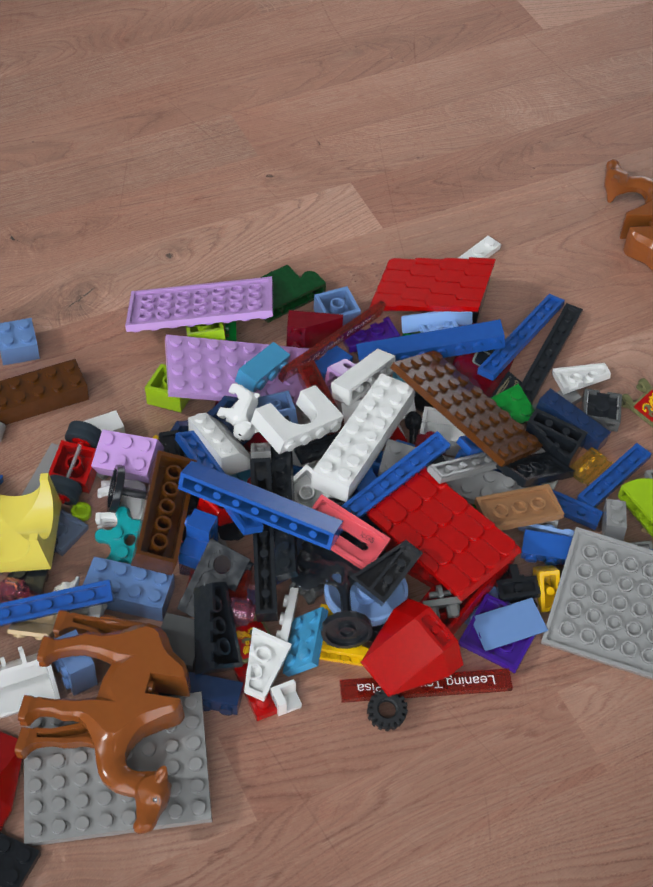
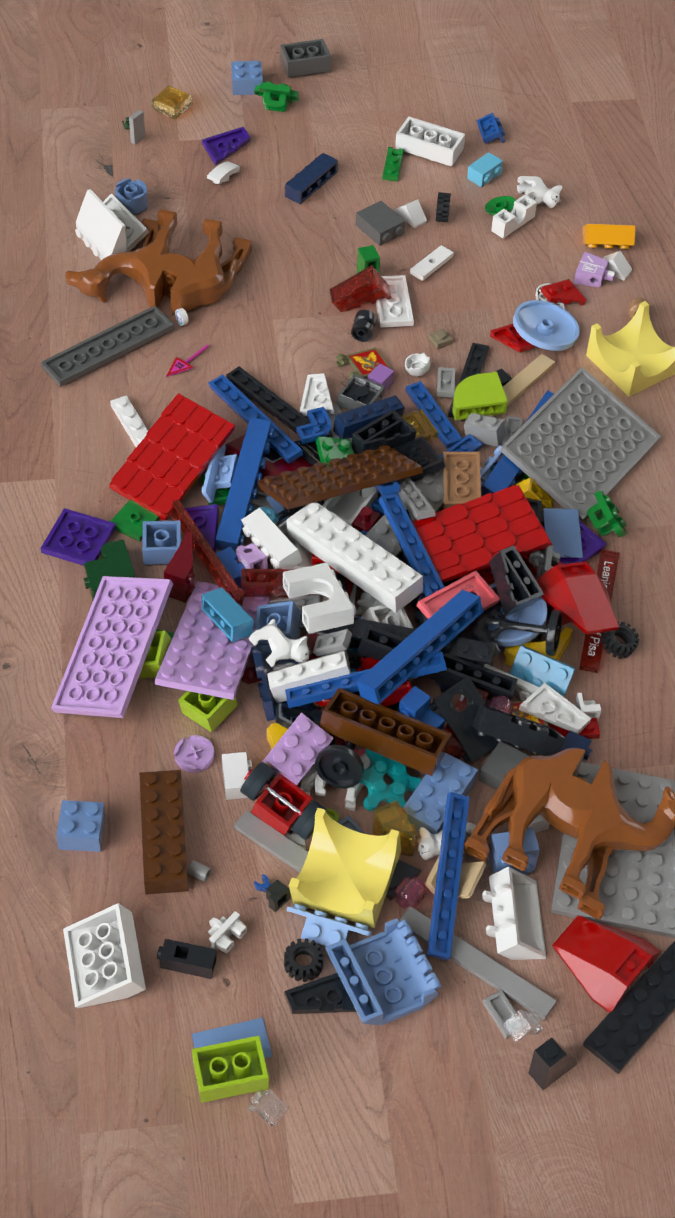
camera: 70 degrees left, 0 degrees up
(74, 556) = (395, 817): none -> clear yellow slope
(120, 397) = (194, 754): none -> lavender tile
(322, 256) = (77, 537): none -> dark purple plate
(362, 288) = (130, 520): none -> green plate
(533, 384) = (319, 426): none -> blue plate
(554, 216) = (107, 346): none -> dark grey plate
(555, 661) = (607, 516): none -> green piece
(564, 271) = (180, 366): none -> piece
(620, 254) = (181, 316): none -> white tile
(634, 420) = (382, 376): none -> medium lavender brick

